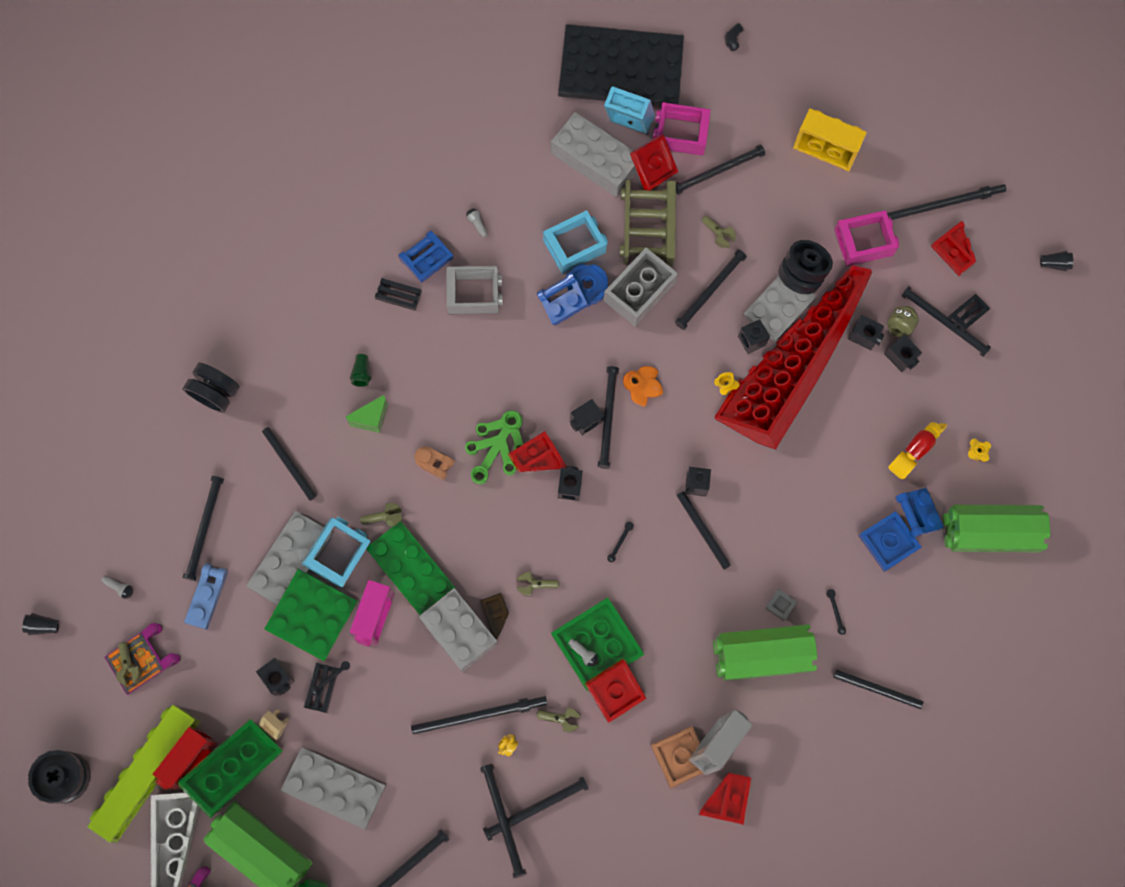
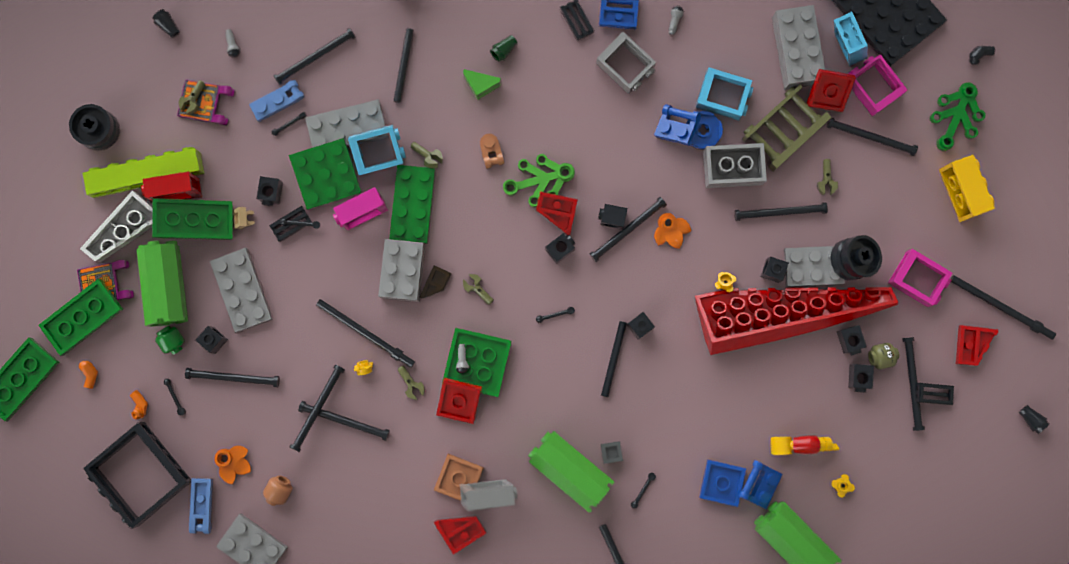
camera: 50 degrees right, 10 degrees up
(230, 623) = (275, 132): none -> black hinge
(350, 856) = (211, 339): none -> black brick
(765, 93) = (958, 113): none -> green plant

